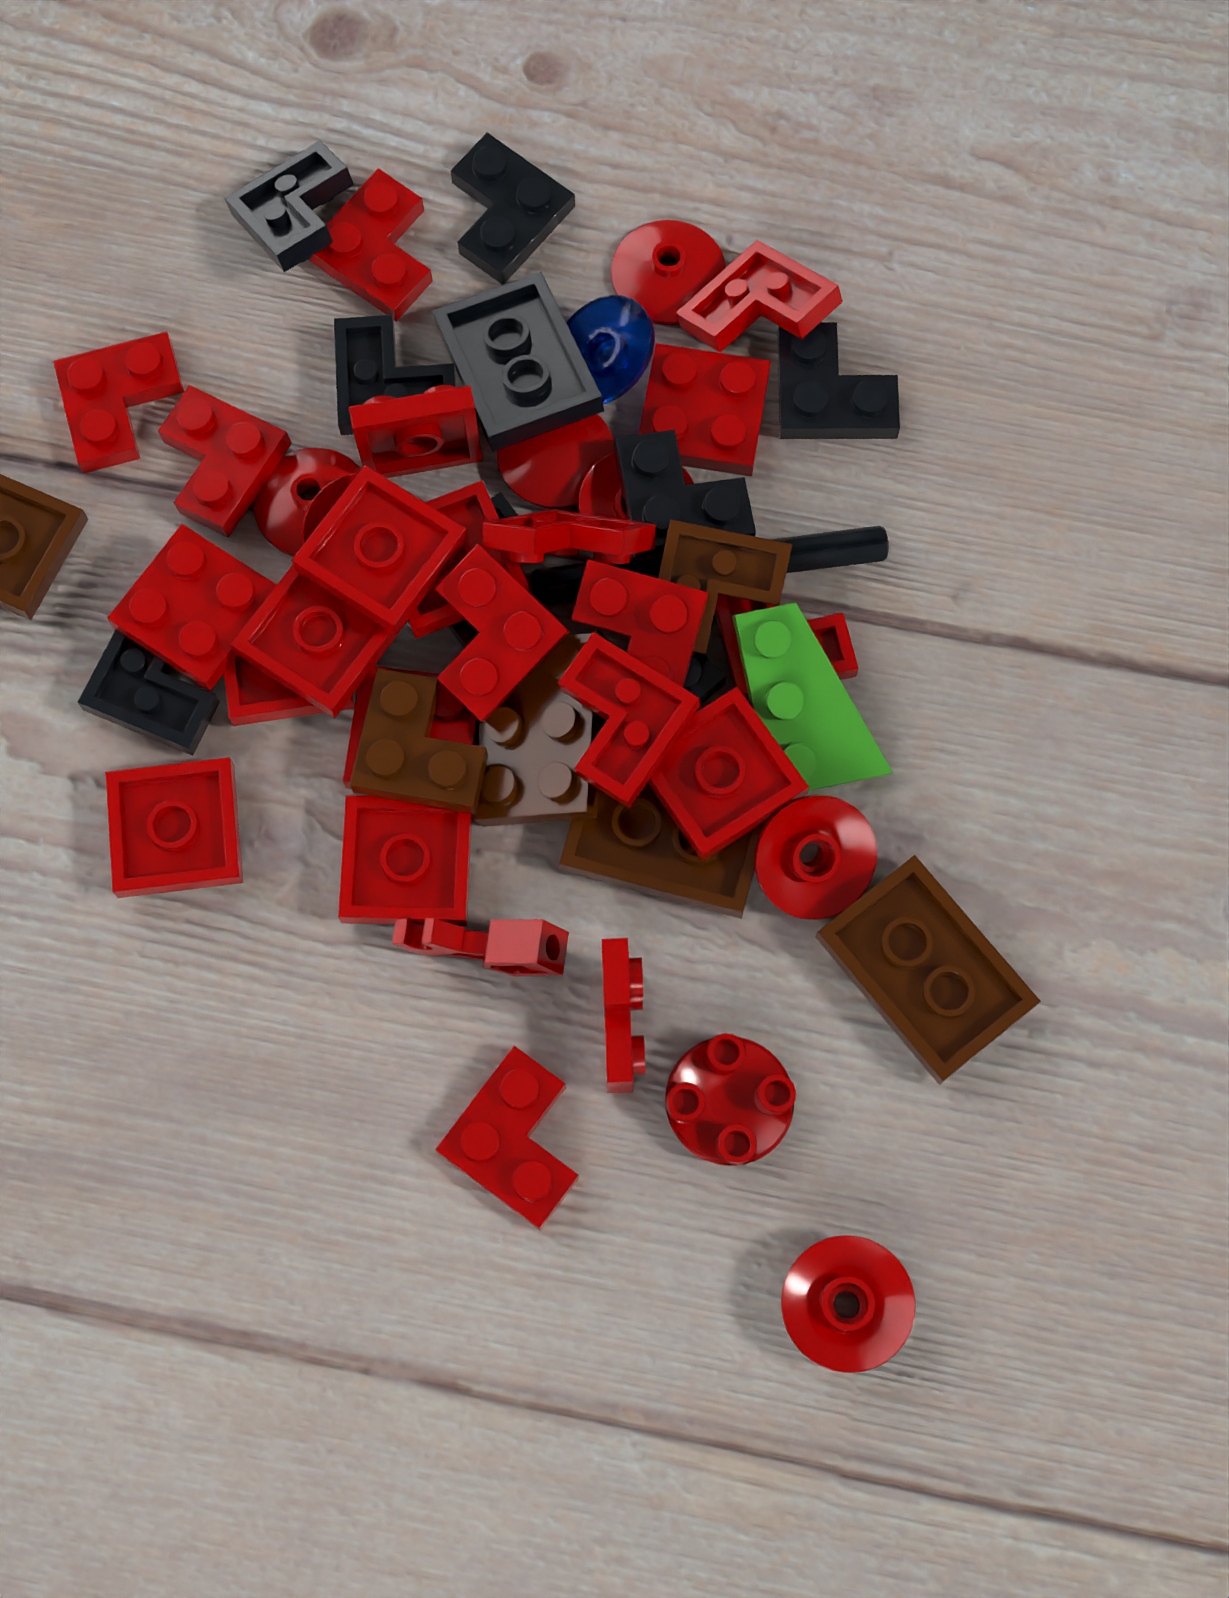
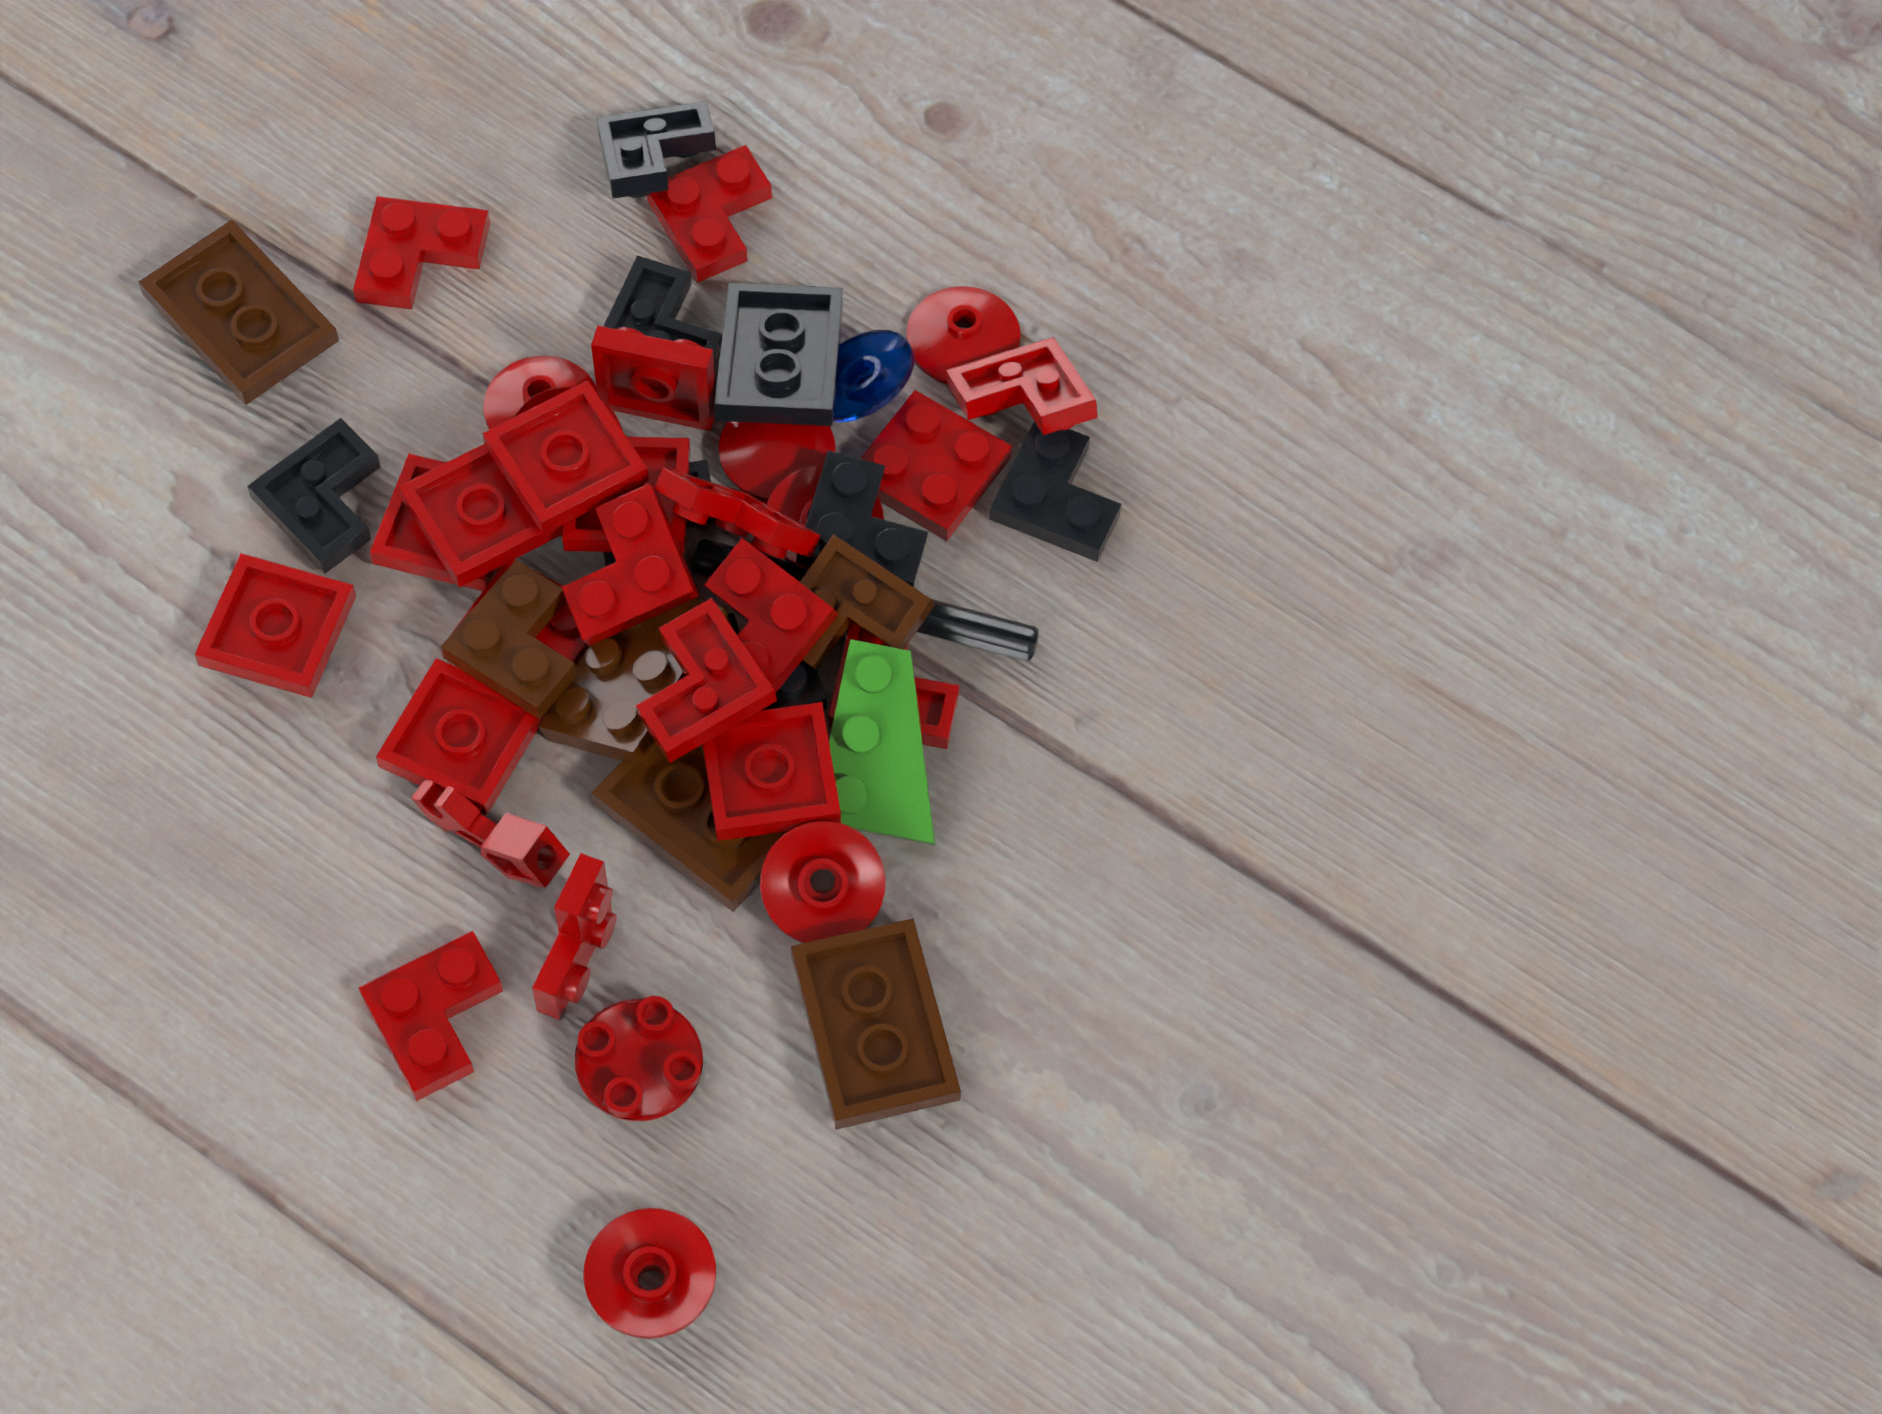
camera: 20 degrees right, 10 degrees down
(191, 606) = (383, 443): red plate -> none
(234, 453) = (492, 335): red plate -> none
(520, 206) = (858, 224): black plate -> none

